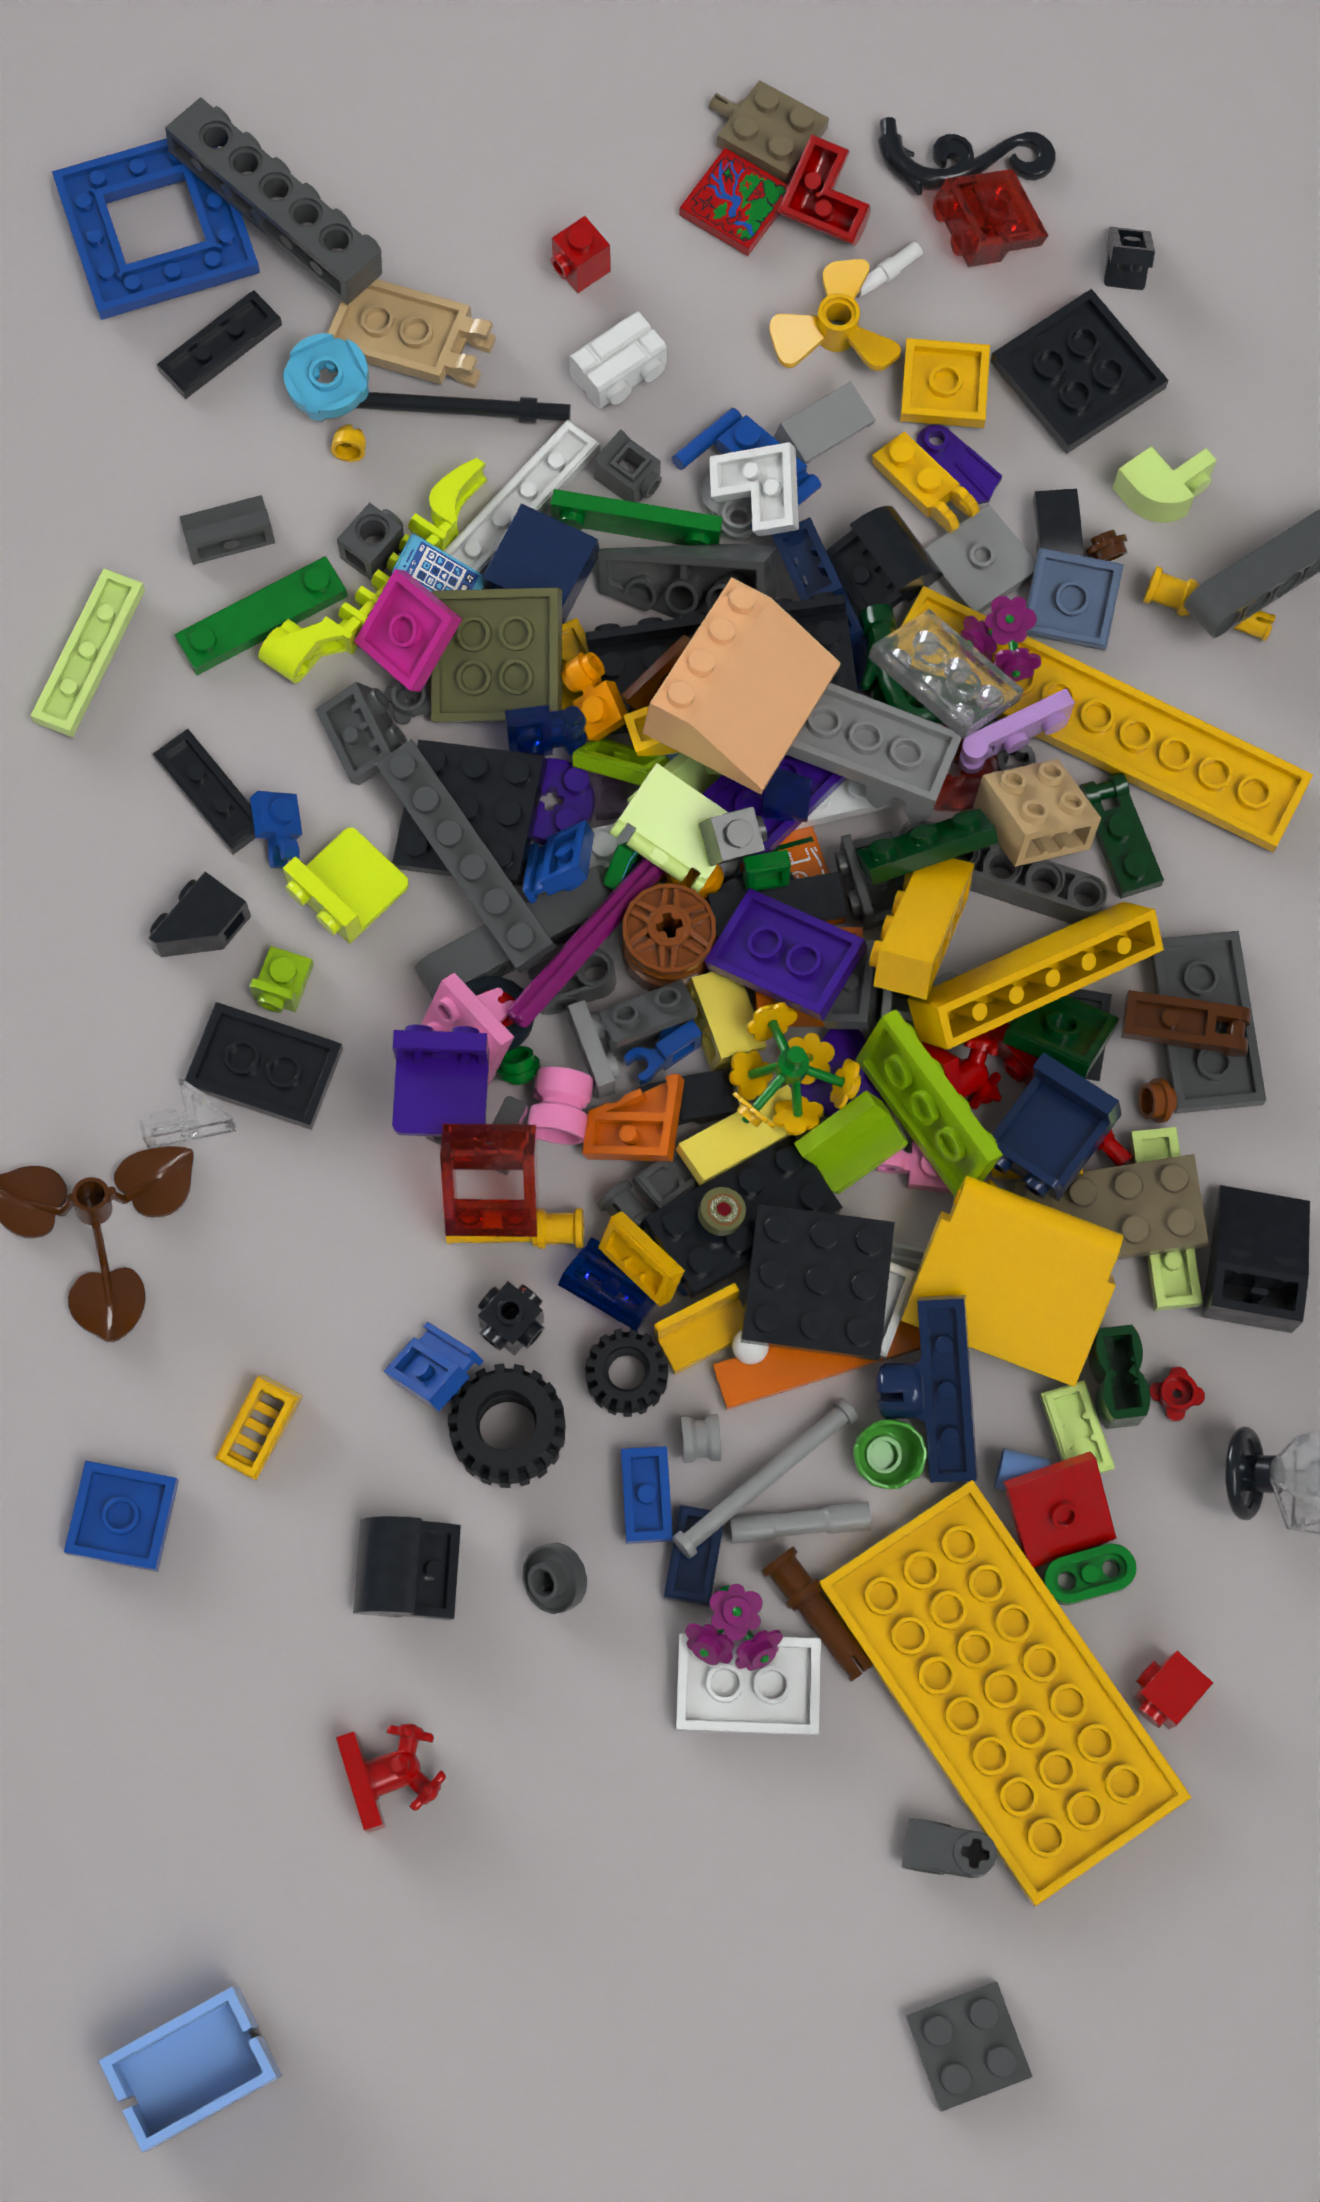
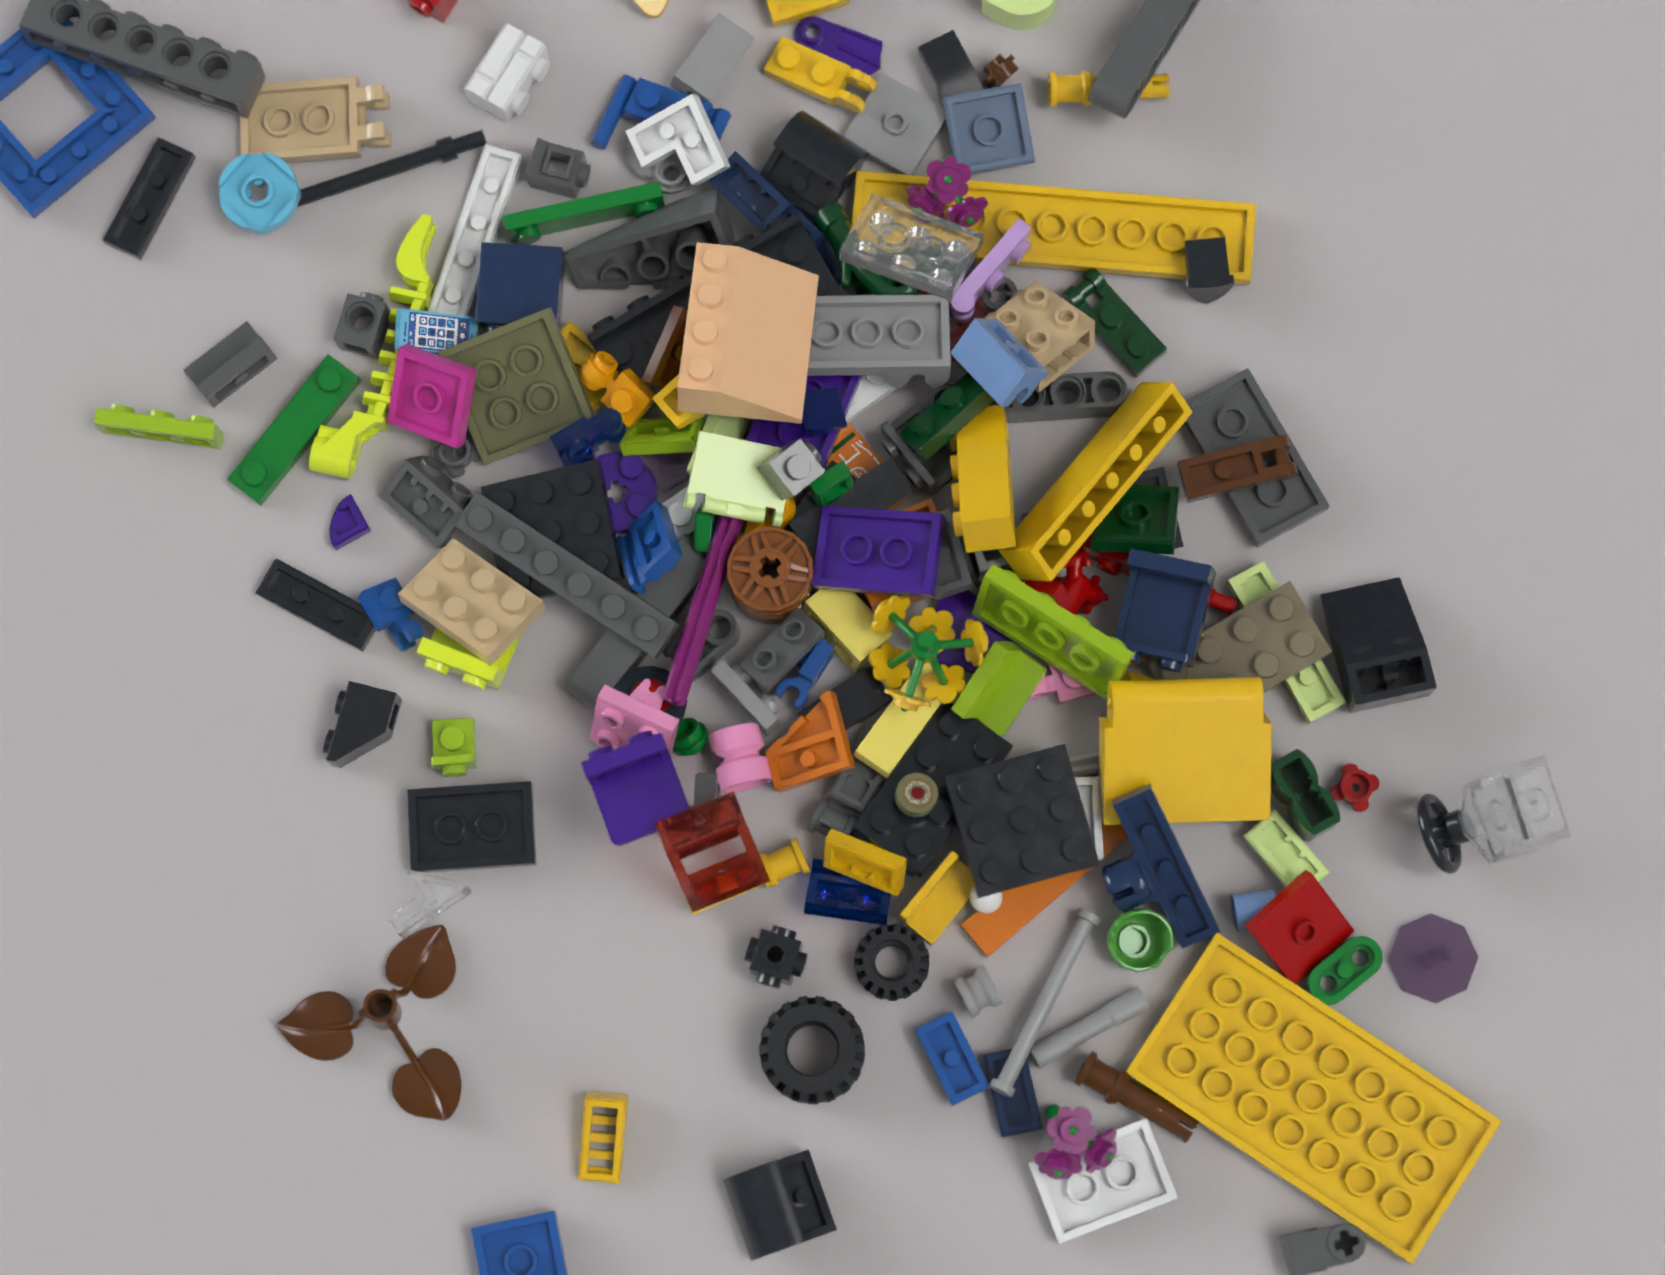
camera: 15 degrees left, 5 degrees up
(88, 653) = (159, 526): yellowish green plate -> none
(130, 558) = (159, 426): none -> lime plate
(272, 725) = (347, 523): none -> dark purple tile
(356, 444) = (303, 243): yellow hinge -> none
(359, 843) = (472, 601): none -> tan plate
(433, 1367) = (729, 1027): blue plate -> none
(554, 1578) = (906, 1161): dark grey plate -> none
(985, 815) = (998, 361): none -> medium blue hinge
(1157, 1100) = (1238, 543): dark orange plate -> none
(1170, 1690) = (1449, 1039): red brick -> none
(1187, 1601) = (1433, 958): none -> clear purple piece
(1236, 818) = (1207, 269): none -> black tile

